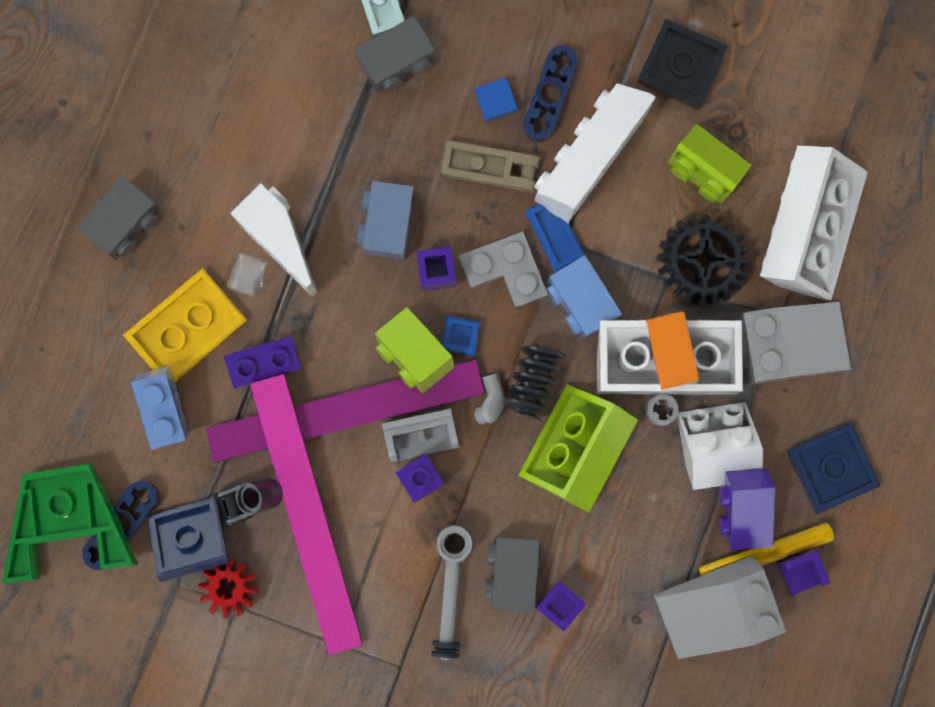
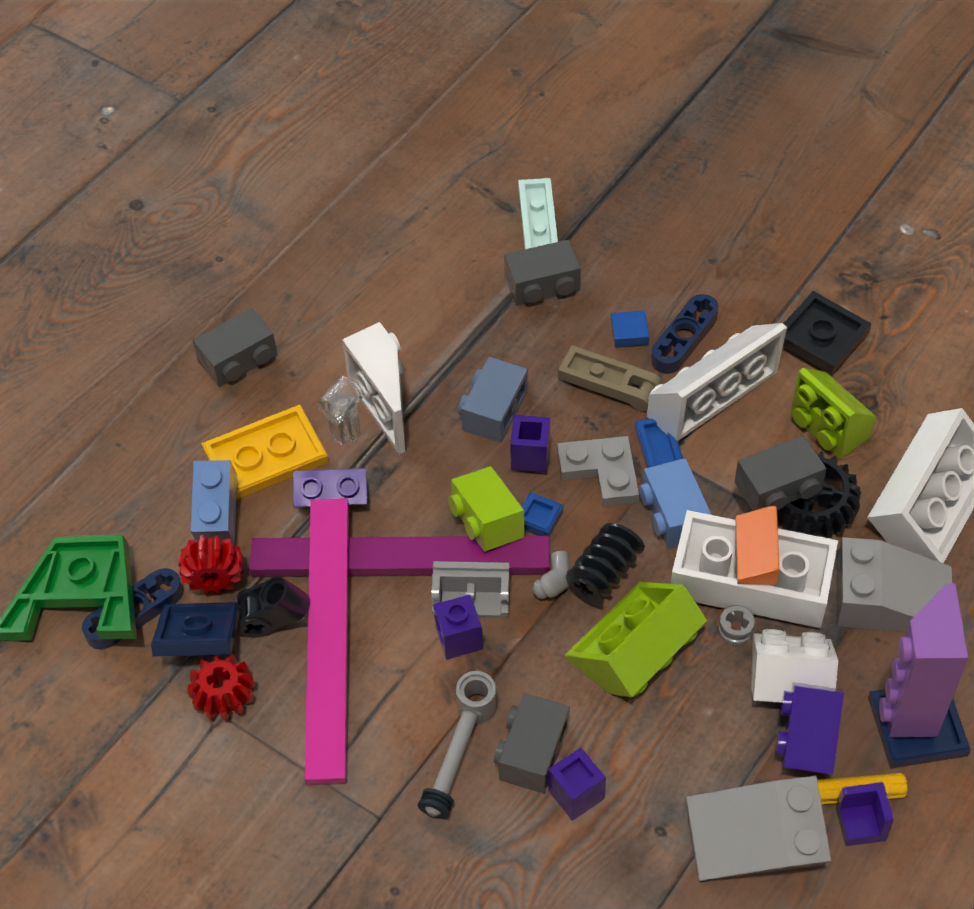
camera: 20 degrees right, 30 degrees down
(179, 473) = (210, 564): none -> red gear
(678, 264) = (780, 474): none -> dark grey brick
(843, 453) = (926, 669): none -> medium lavender slope

